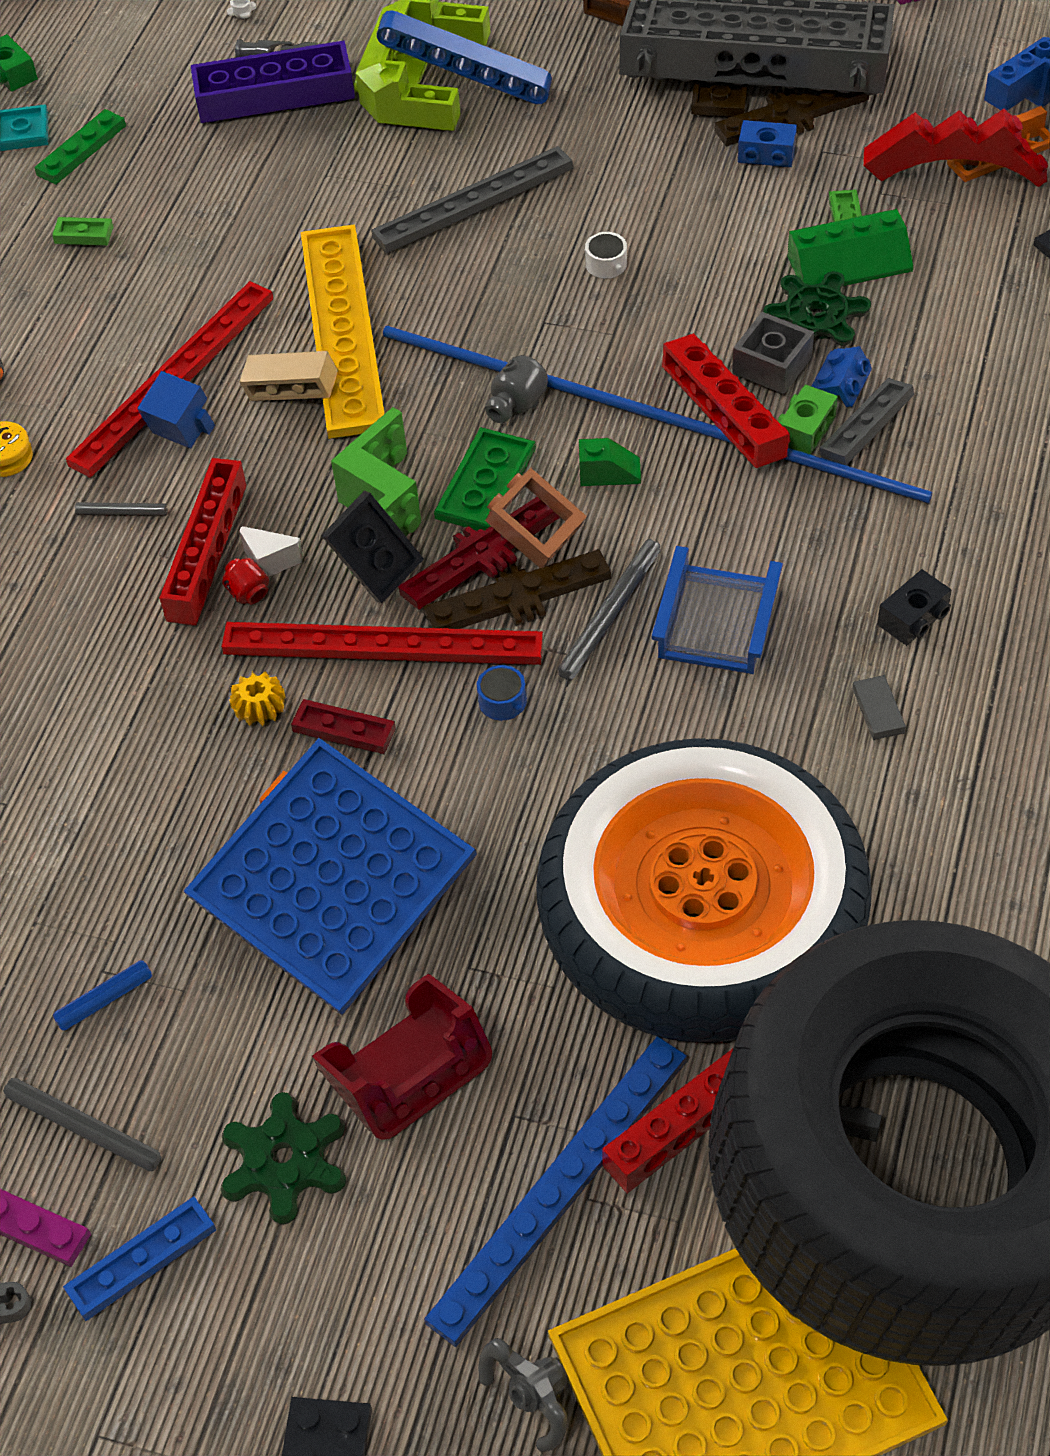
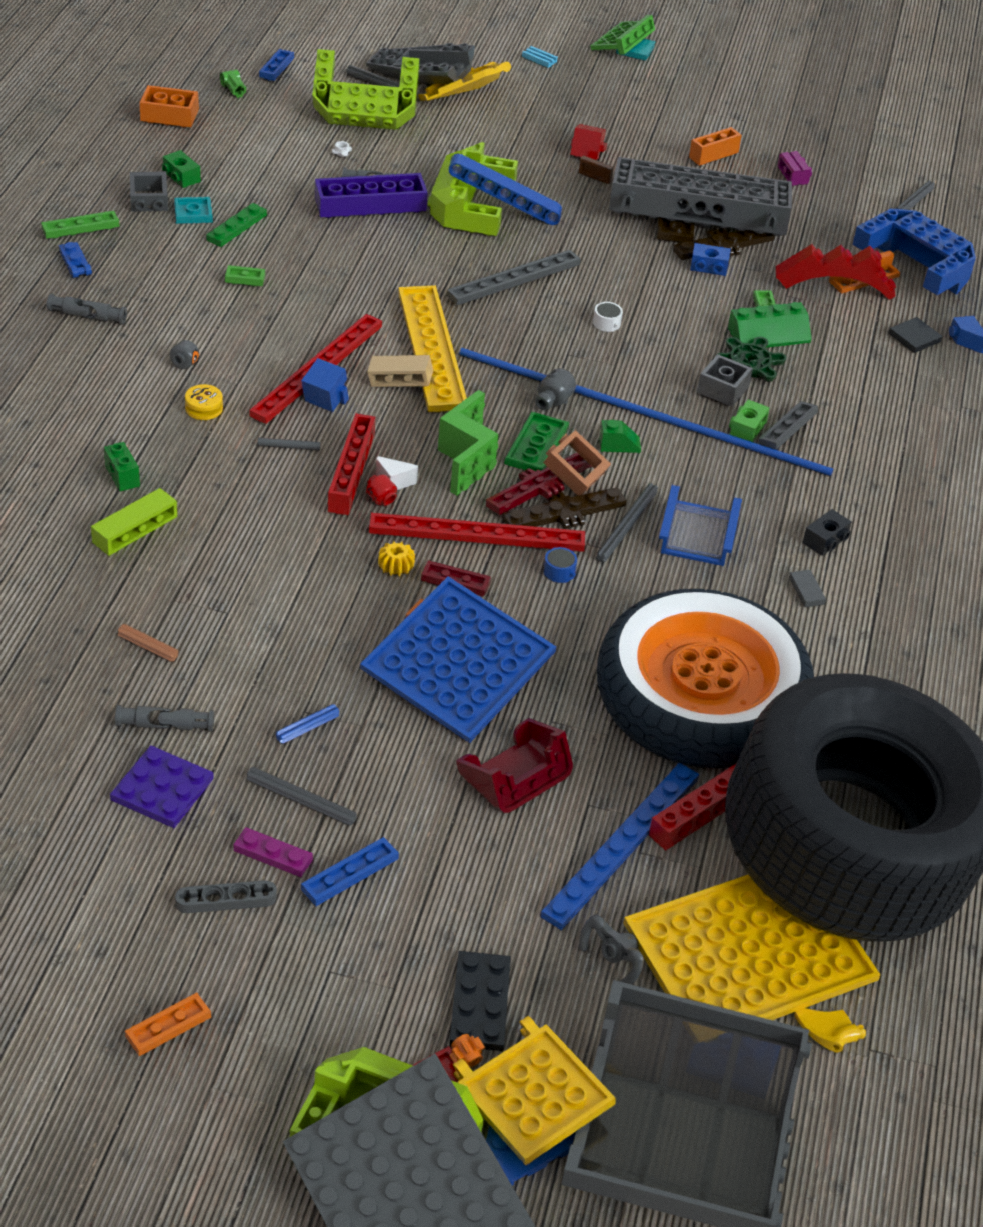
camera: 10 degrees left, 10 degrees down
(283, 1180) = (438, 833): dark green plate -> none
(372, 547) = (472, 470): black plate -> none
(725, 400) = (695, 405): red brick -> none
(844, 374) = (772, 395): blue bracket -> none

